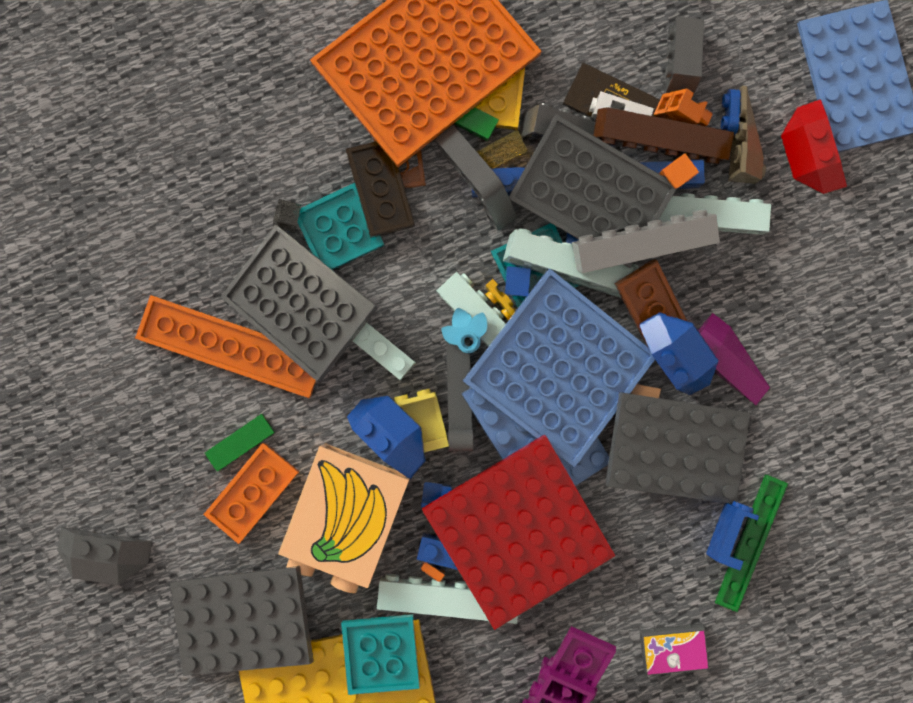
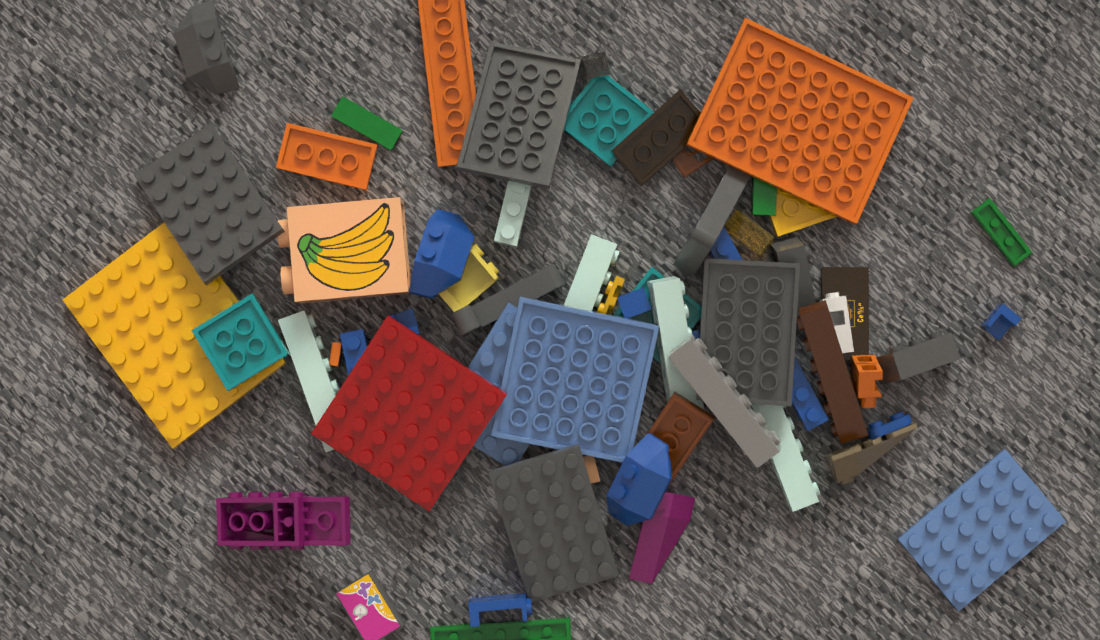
camera: 65 degrees right, 0 degrees up
(465, 326) = (571, 277): medium azure plate -> none
(680, 171) = (803, 400): orange panel -> none
(813, 149) = (891, 518): red wedge -> none

